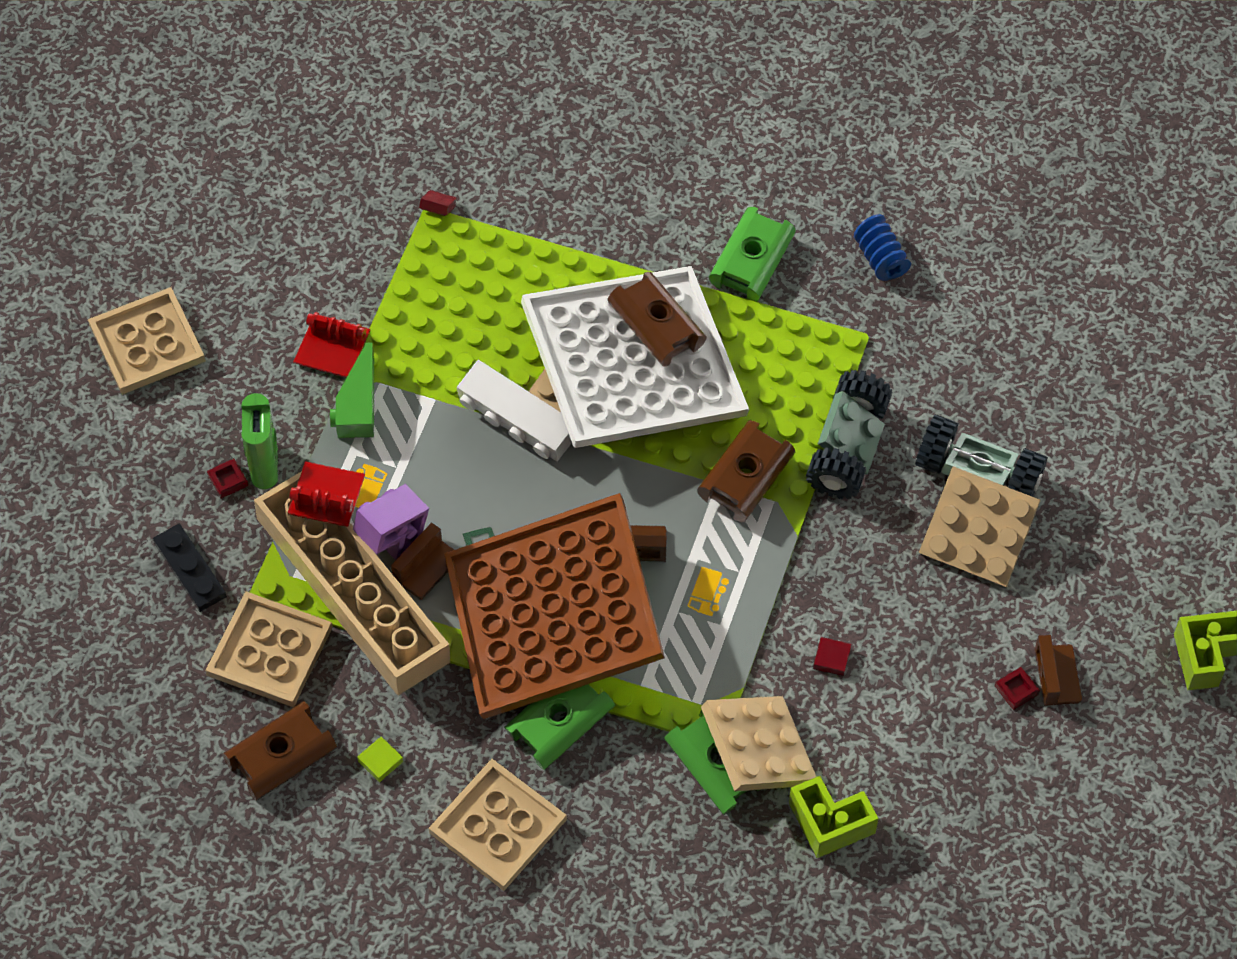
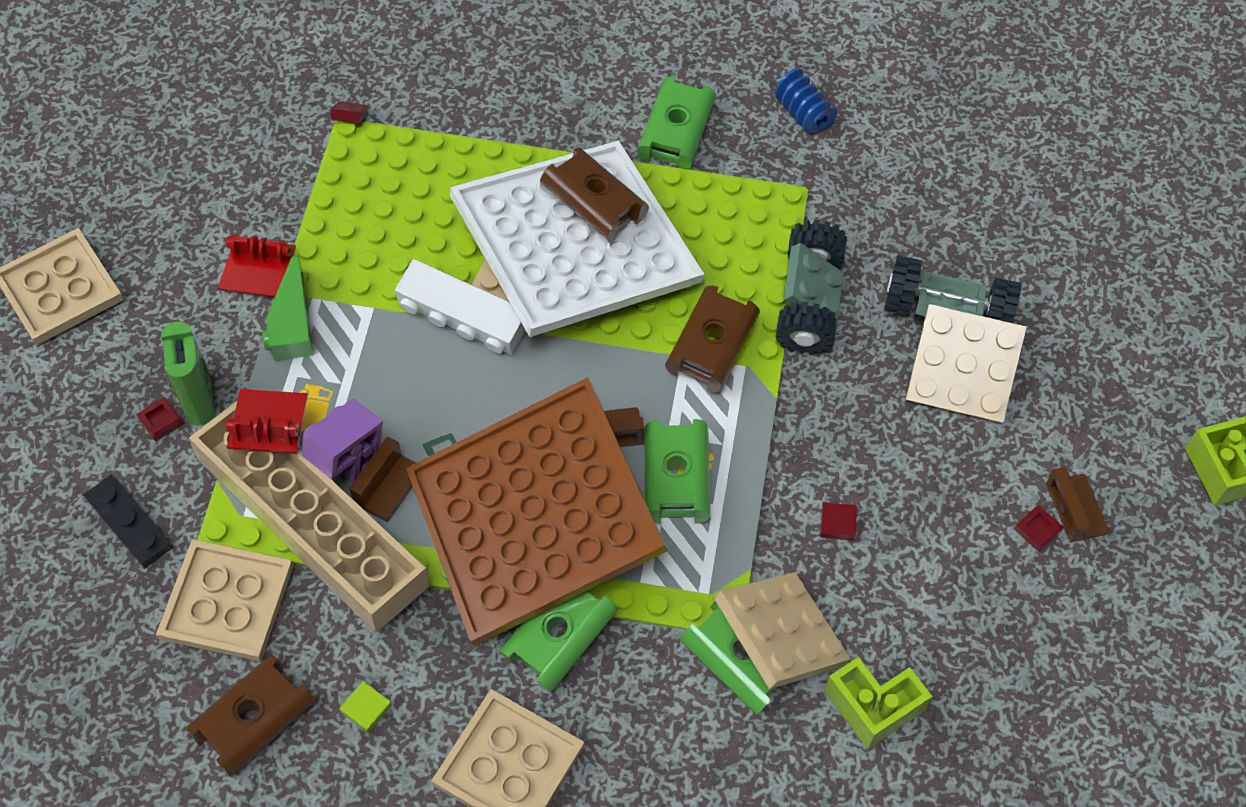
camera: 10 degrees left, 0 degrees up
(690, 610) = (682, 448): none -> bright green piece

